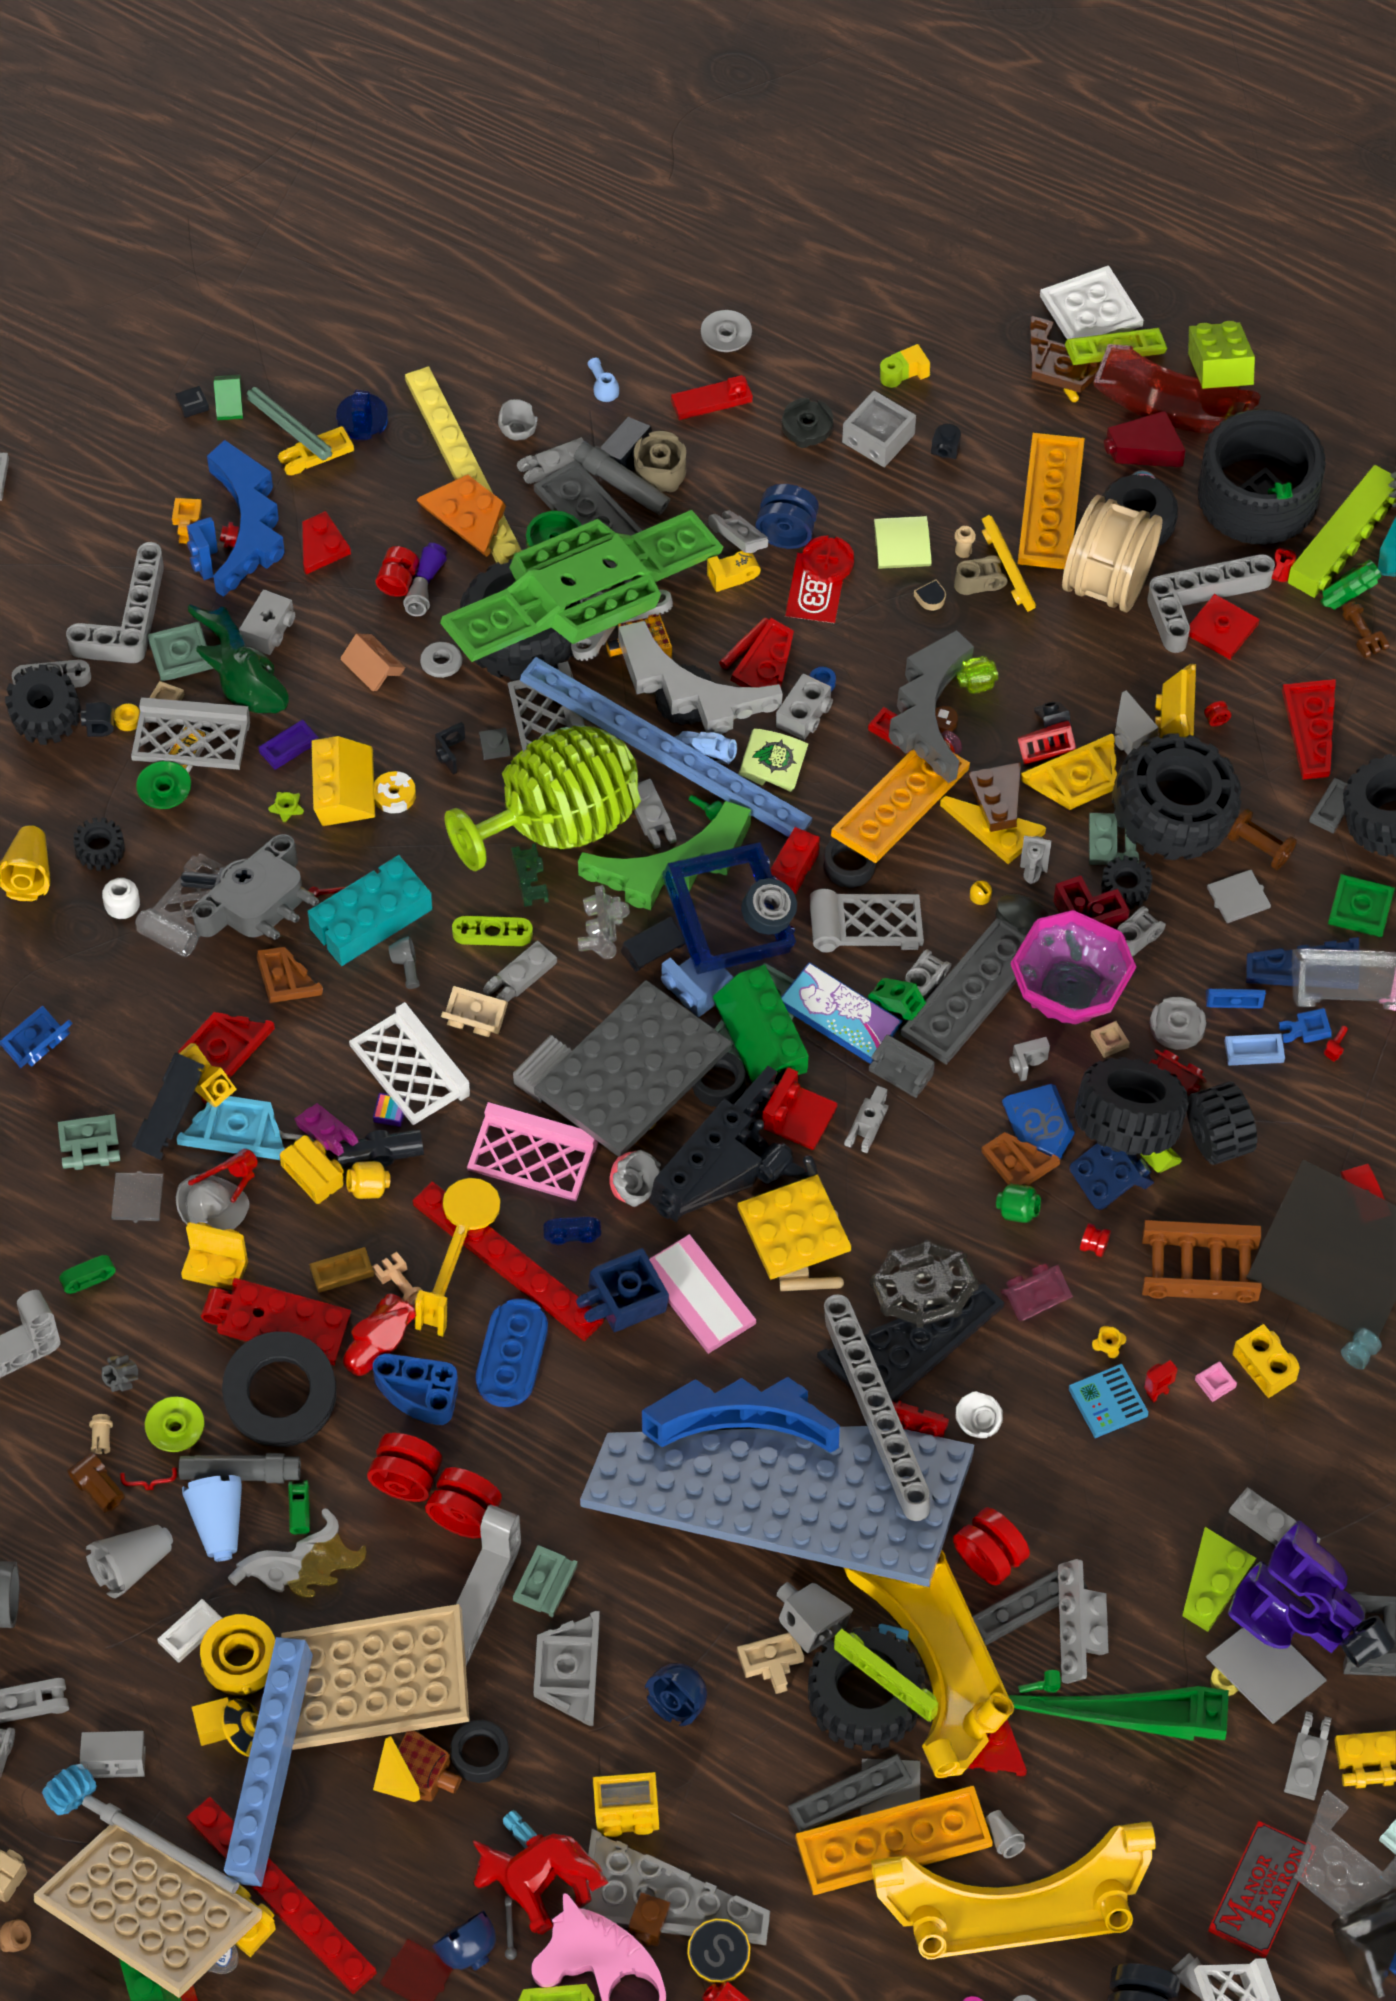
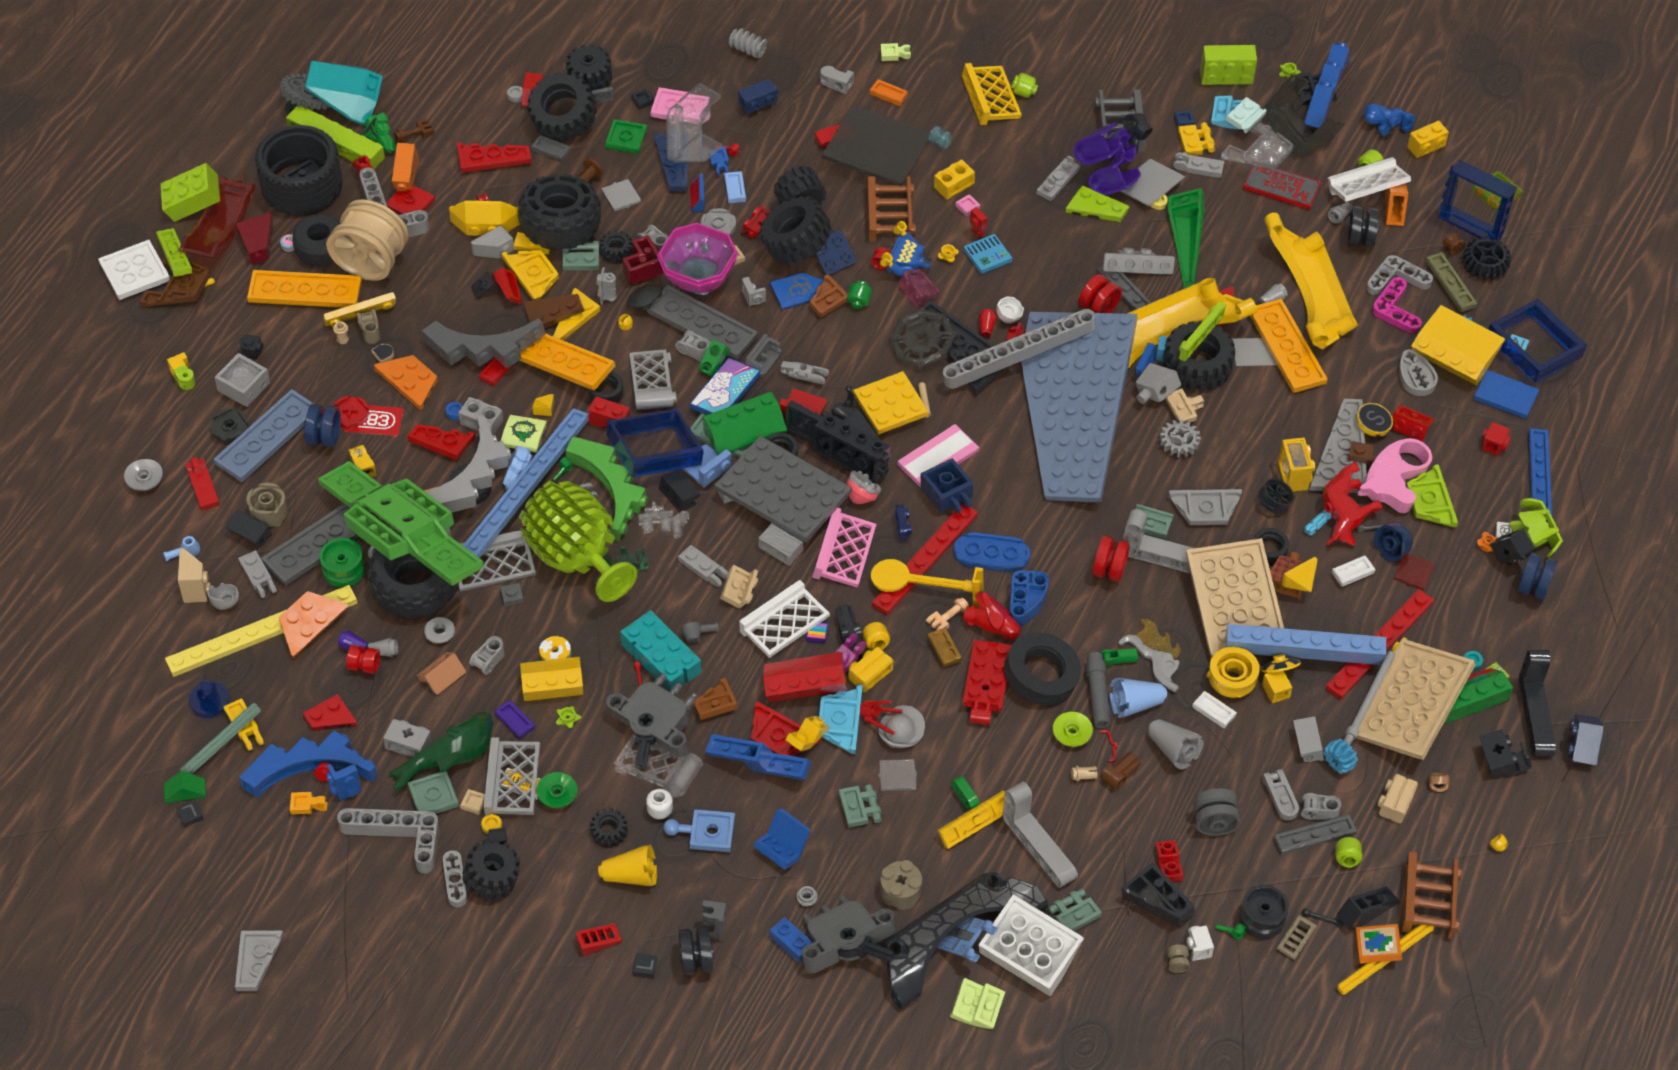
camera: 95 degrees left, 5 degrees down
(39, 1276) = (972, 821): none -> yellow plate
(68, 947) = (702, 821): none -> medium blue plate
(119, 1373) = (1039, 764): dark grey gear -> none
(169, 1106) = (834, 752): black piece -> none
(172, 1013) = (758, 757): none -> blue bracket
(214, 1255) = (946, 719): yellow bracket -> none
(299, 1077) = (804, 677): none -> red slope
(390, 713) = (485, 657): none -> light grey piece
(404, 1467) = (1093, 592): red wheel -> none
(421, 1873) = (1353, 571): none -> white plate
(442, 751) = (521, 620): black bracket -> none
(500, 939) = (665, 577): lime beam -> none
(545, 380) = (192, 578): none -> tan slope
(572, 1770) = (1278, 497): none -> black wheel
(601, 464) = (269, 539): dark grey piece -> none
(677, 1693) = (1216, 446): dark blue cylinder -> none
(693, 1646) = (1178, 438): none -> light grey gear
(738, 531) = (332, 455): light grey hinge -> none
(740, 1404) = (1019, 423): blue arch -> none
(743, 644) = (423, 455): red piece -> none
(759, 916) = (659, 414): wheel -> none
(787, 461) = (264, 436): none -> sand blue plate
(823, 785) = (544, 405): none -> yellow slope
(850, 1794) = (1261, 368): dark grey tile -> none
(865, 1609) = (1147, 357): none -> blue tile
(883, 627) = (409, 378): none -> orange wing
(902, 542) = (338, 368): yellowish green slope -> none
(957, 1382) = (987, 321): none -> red cone
(977, 674) = (455, 320): clear neon green head -> none
(1051, 1683) = (1175, 277): green hand -> none
(1097, 1275) = (906, 253): none -> blue torso
(1277, 611) = (405, 166): none -> orange slope
(1282, 491) = (328, 141): green hand -> none

